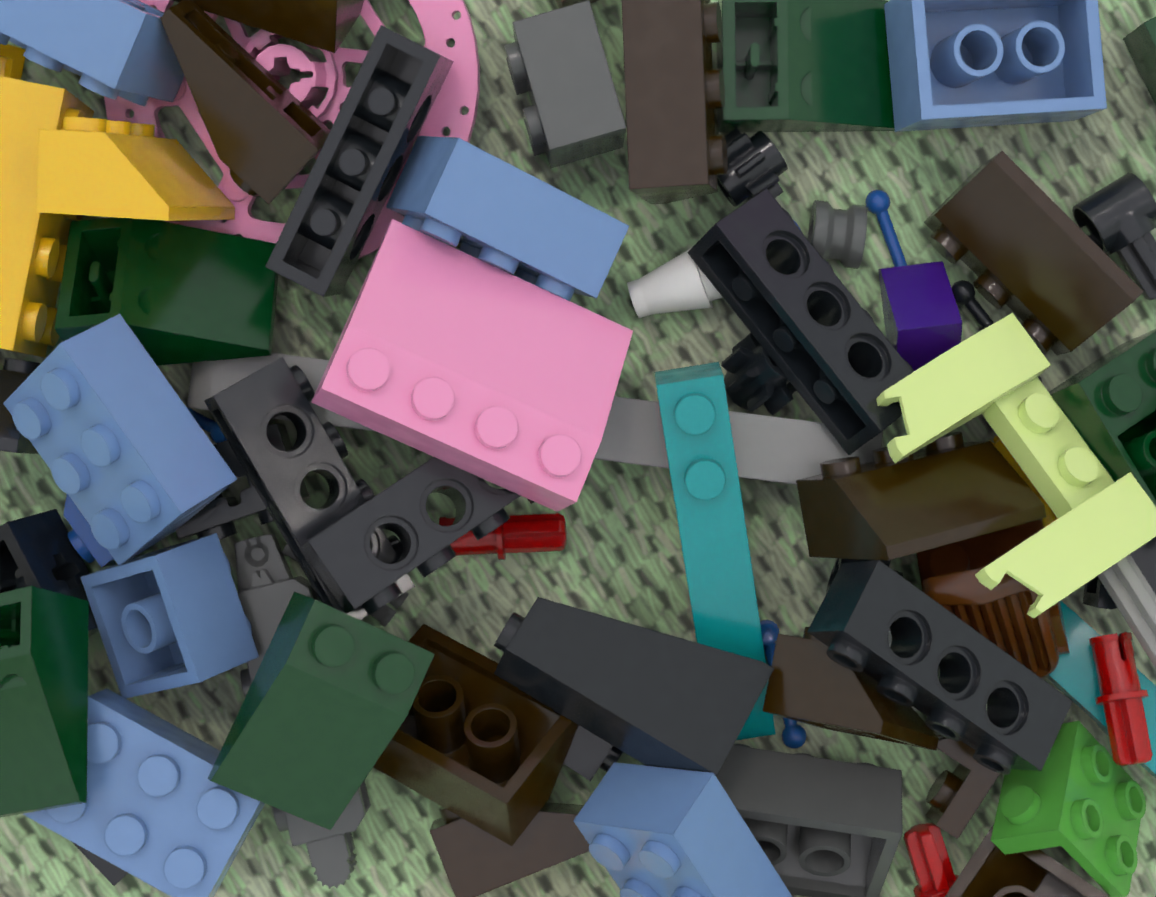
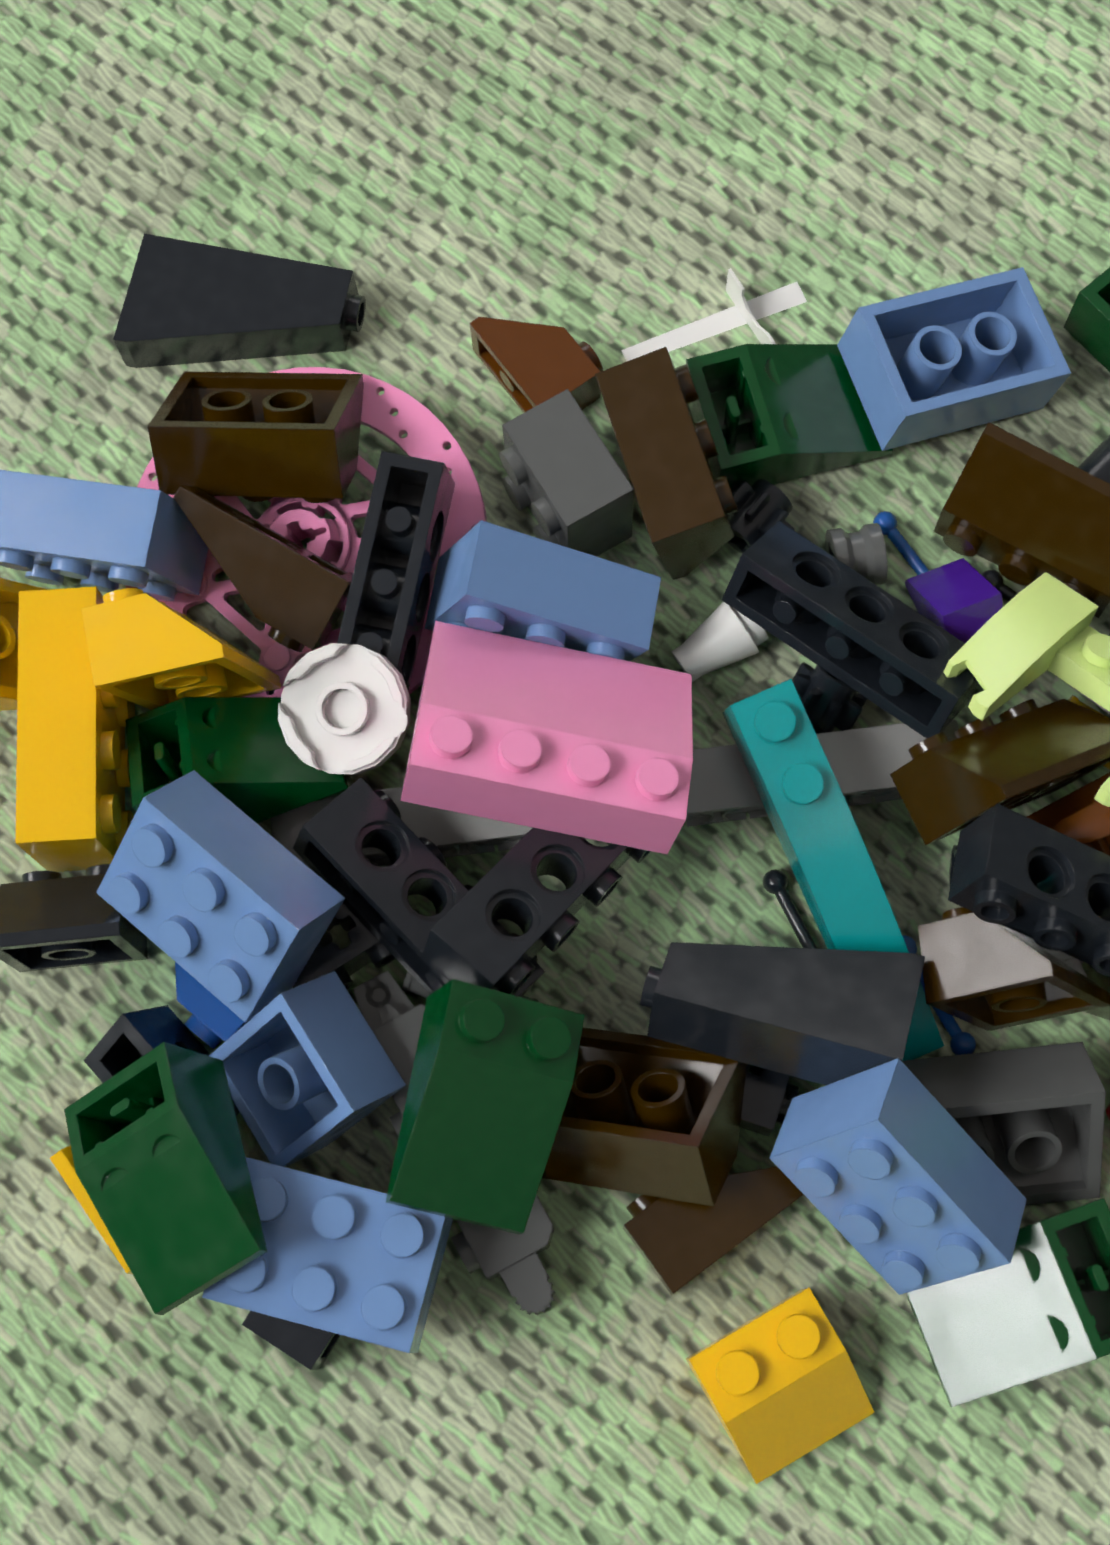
camera: 15 degrees left, 15 degrees down
(283, 282) = (344, 709): none -> white tile
(516, 535) = (622, 916): red axle -> none
(664, 538) = (776, 883): none -> black hinge

